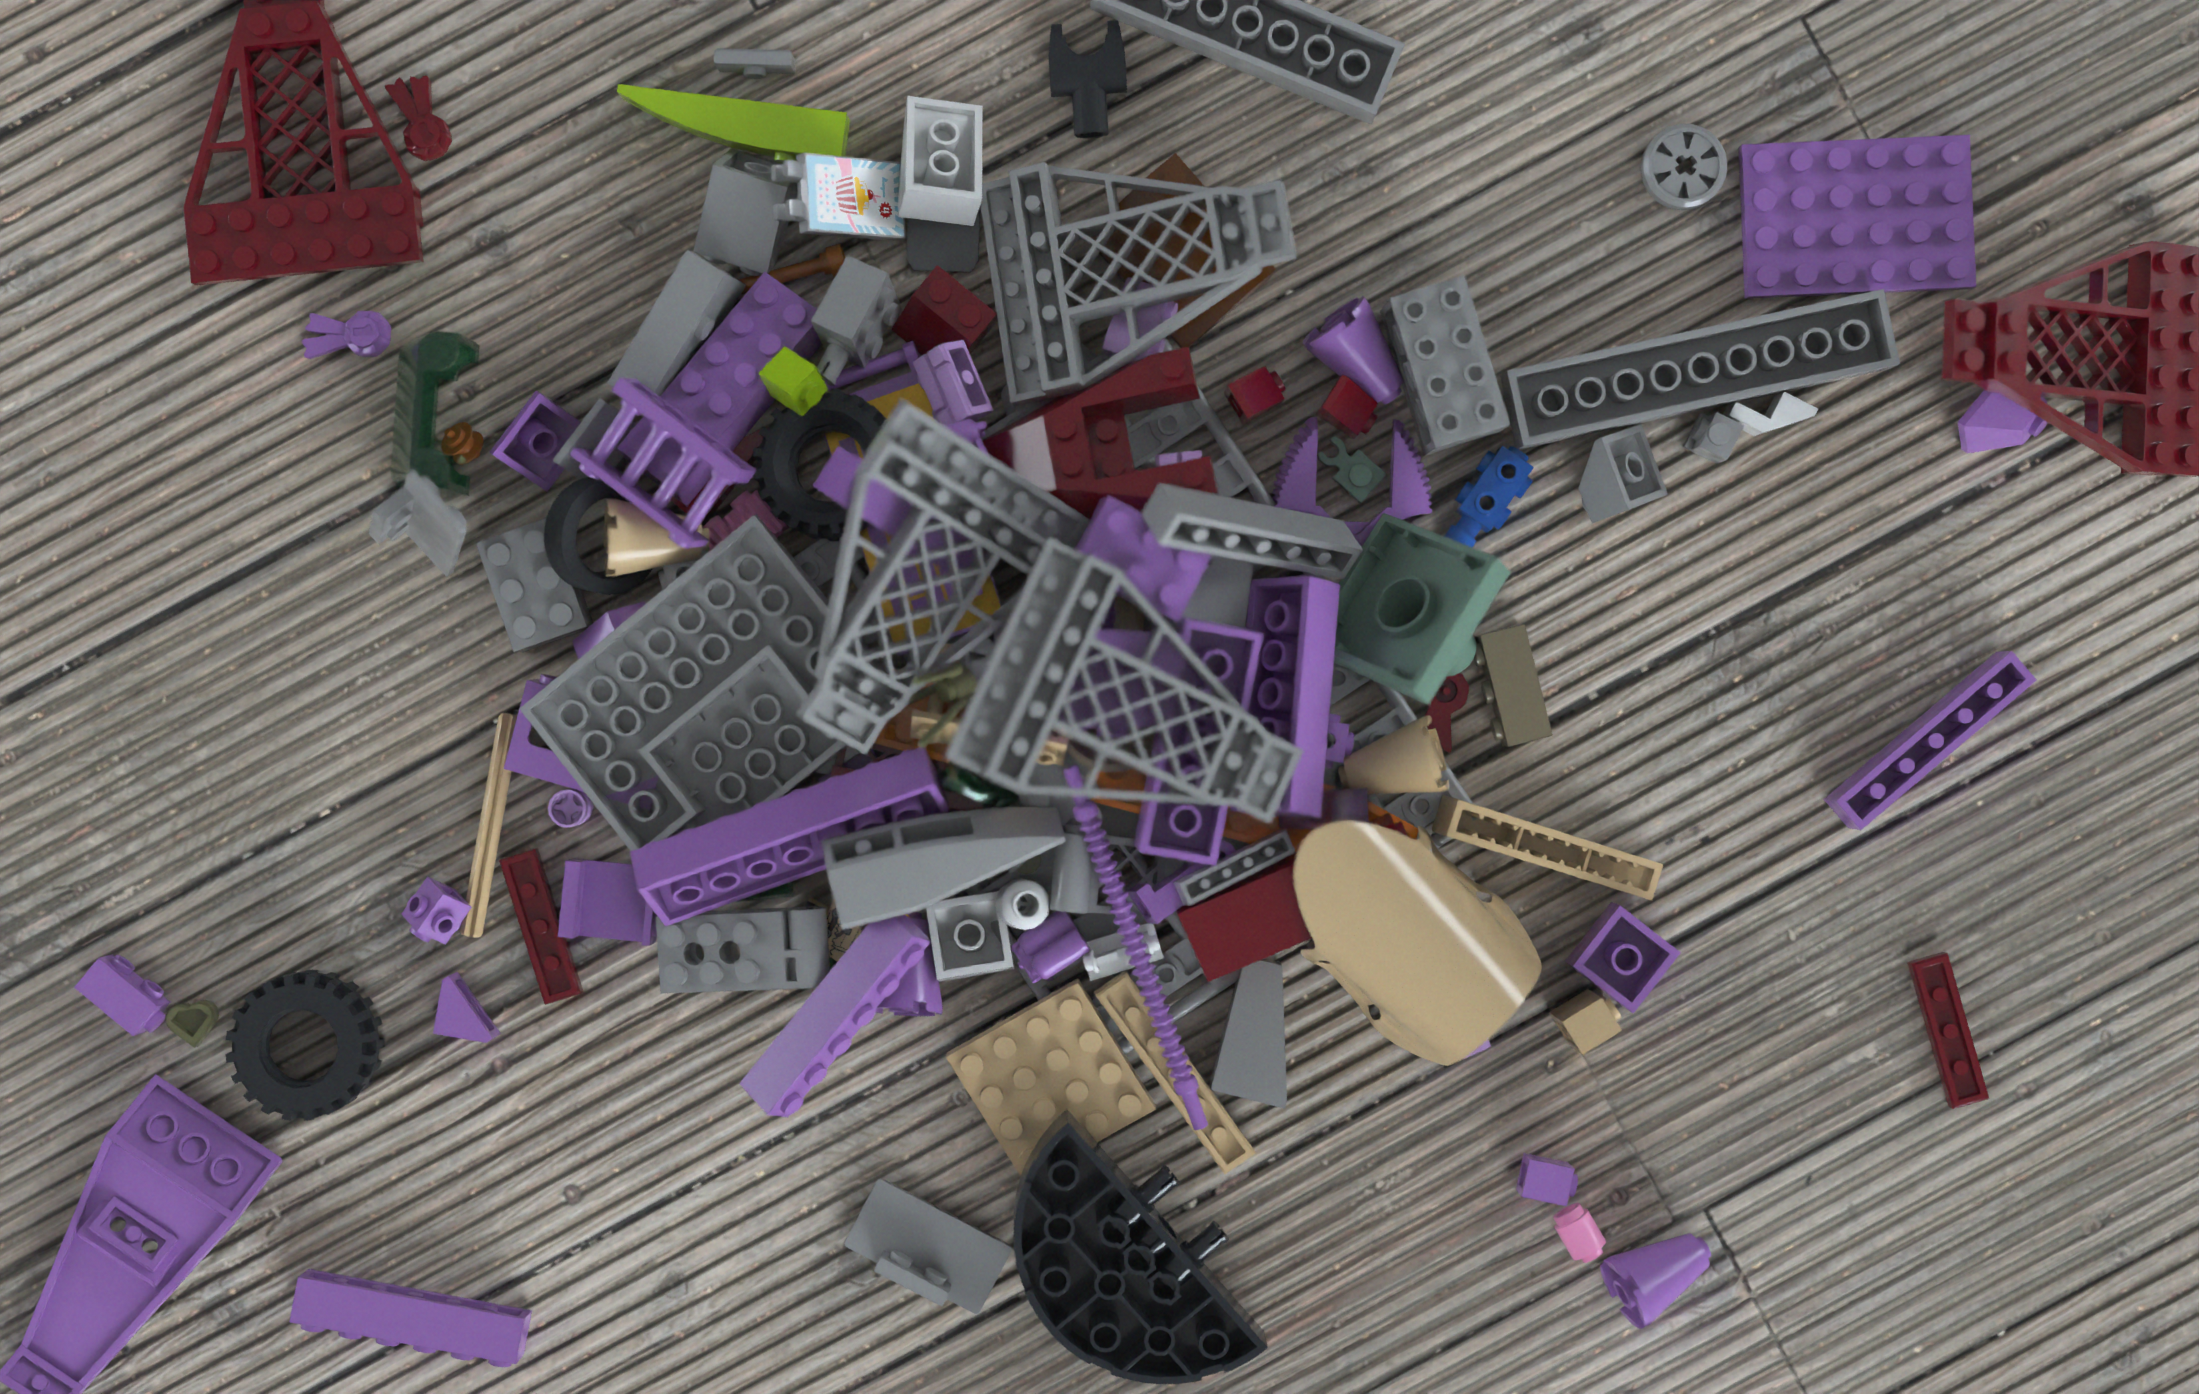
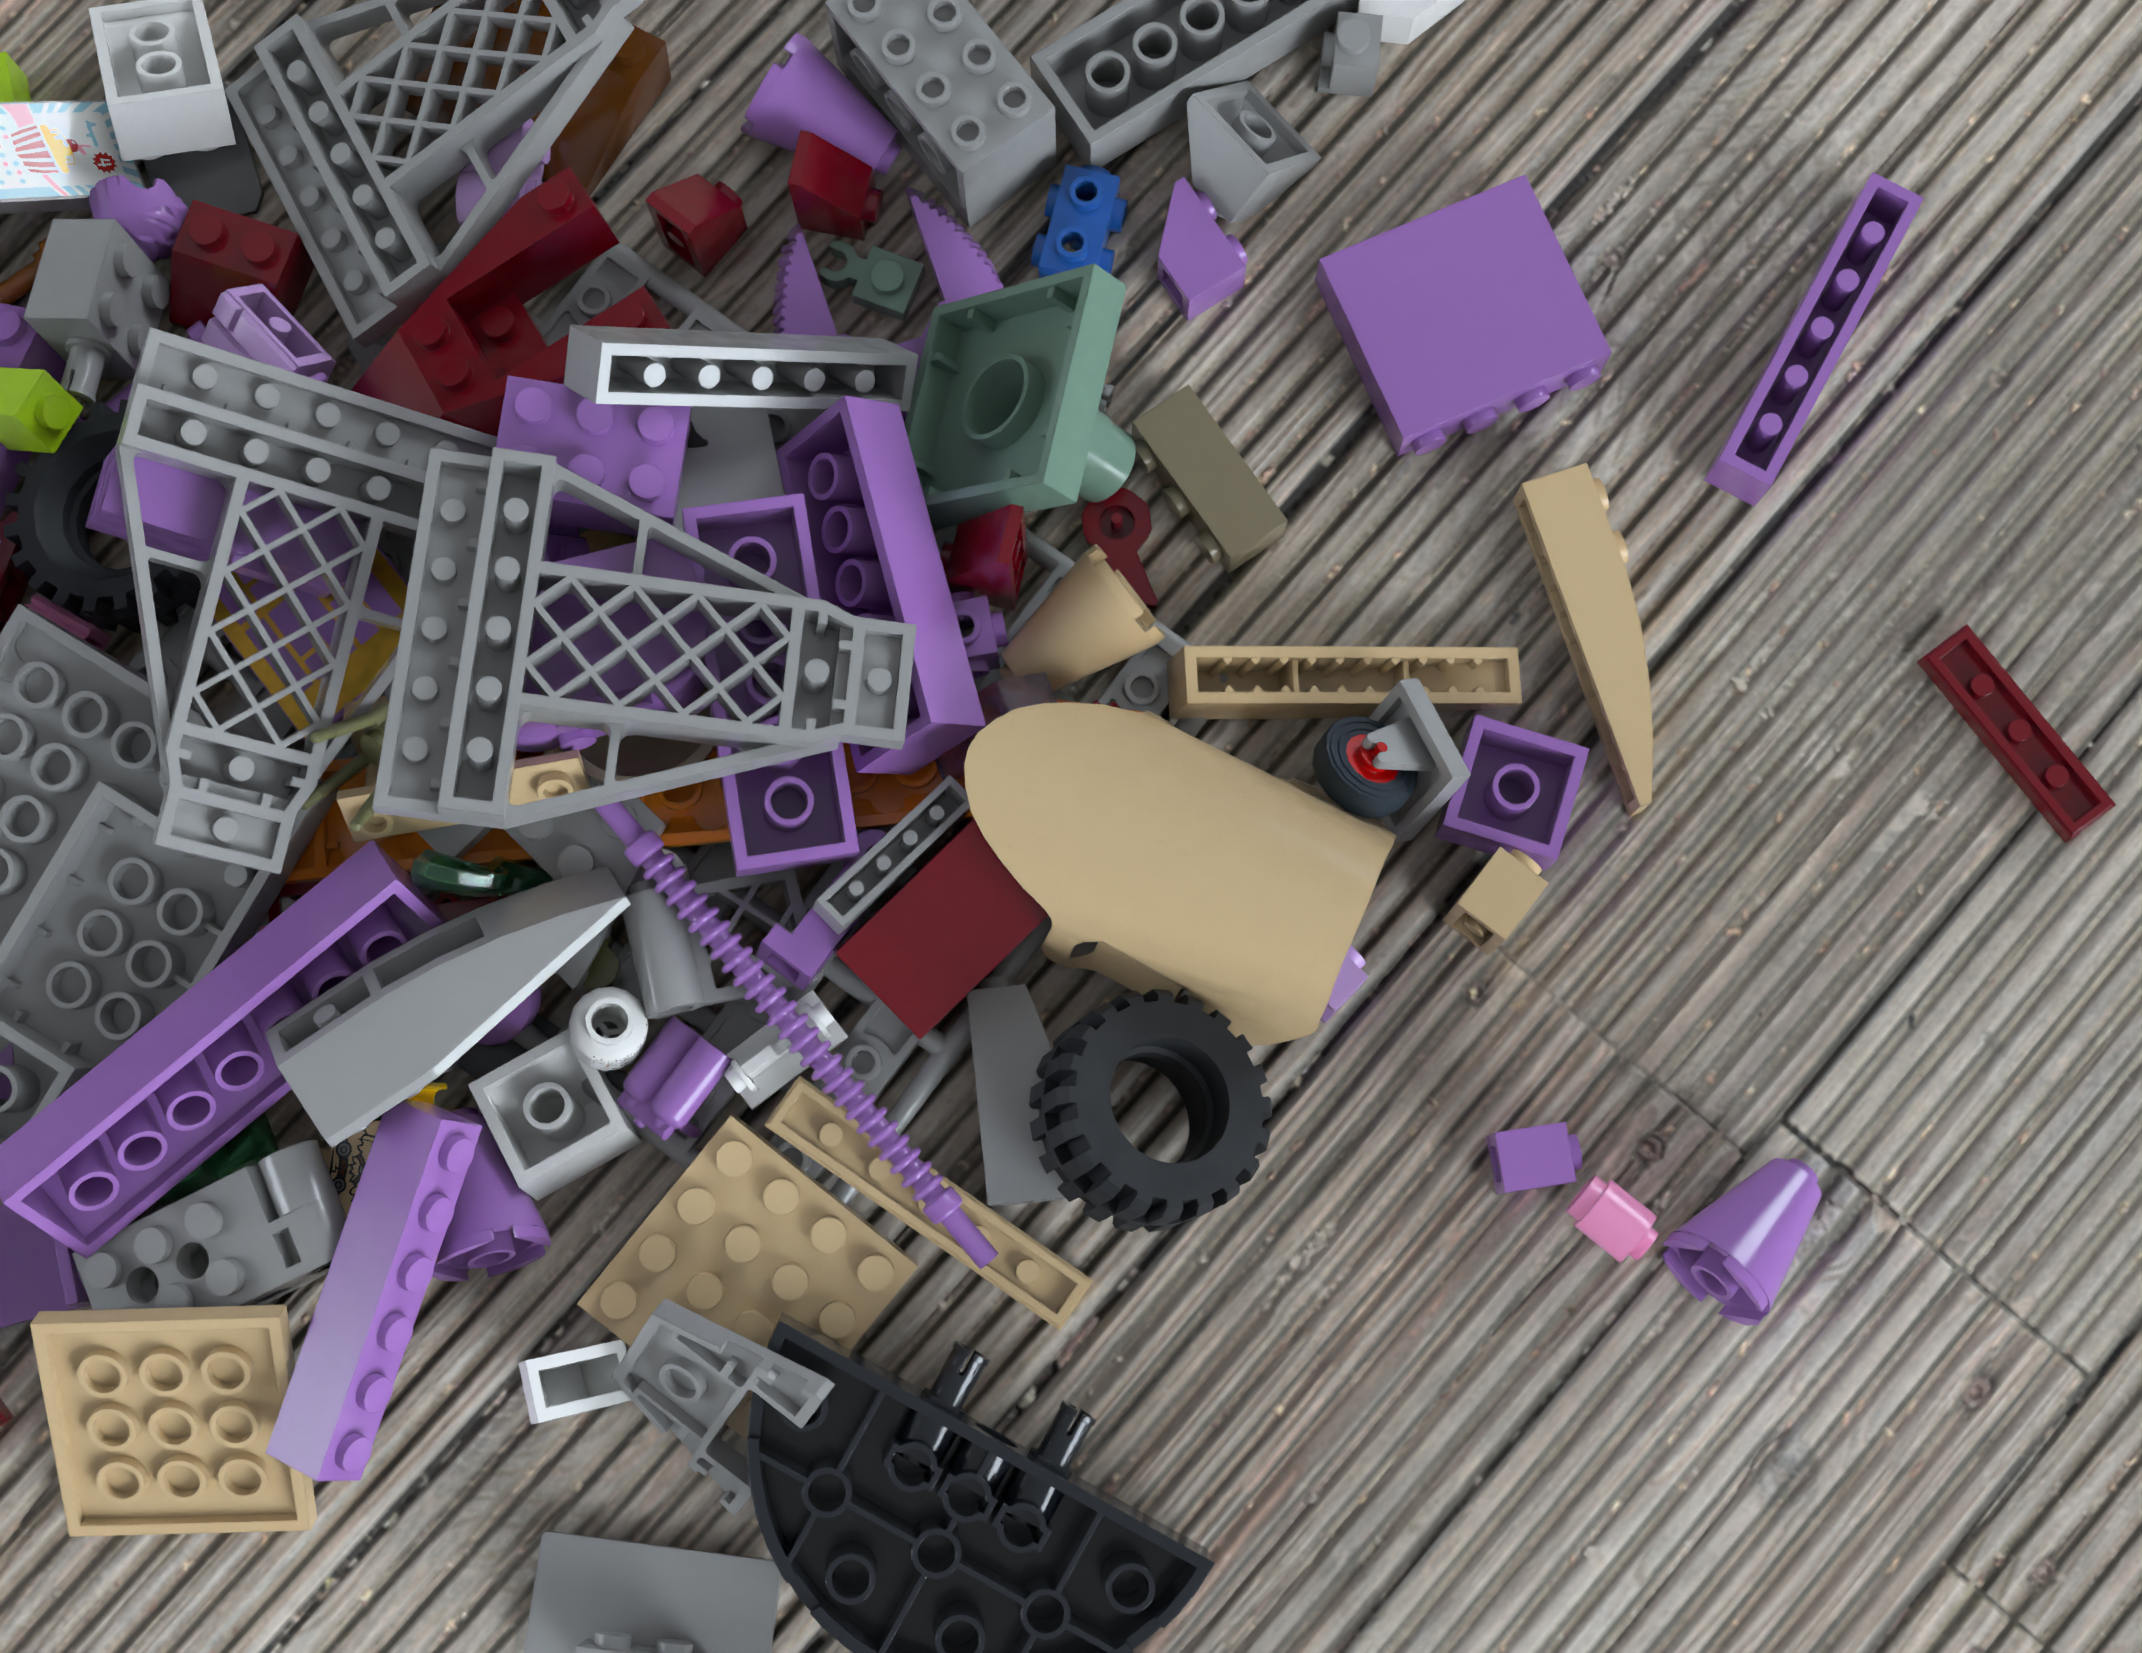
camera: 20 degrees left, 10 degrees down
(686, 1038) = (170, 1419): none -> tan plate
(904, 265) = (147, 215): none -> medium lavender hair
(932, 1103) = (572, 1381): none -> white slope
(1008, 1133) = (695, 1375): none -> light grey wing
(1358, 700) = (988, 556): none -> dark red slope
(1372, 1081) = (1205, 1067): none -> black tyre
(1556, 916) = (1393, 763): none -> plate
(1561, 532) = (1195, 256): none -> medium lavender slope
(1715, 640) = (1462, 317): none -> medium lavender brick
(1721, 864) = (1597, 616): none -> tan slope

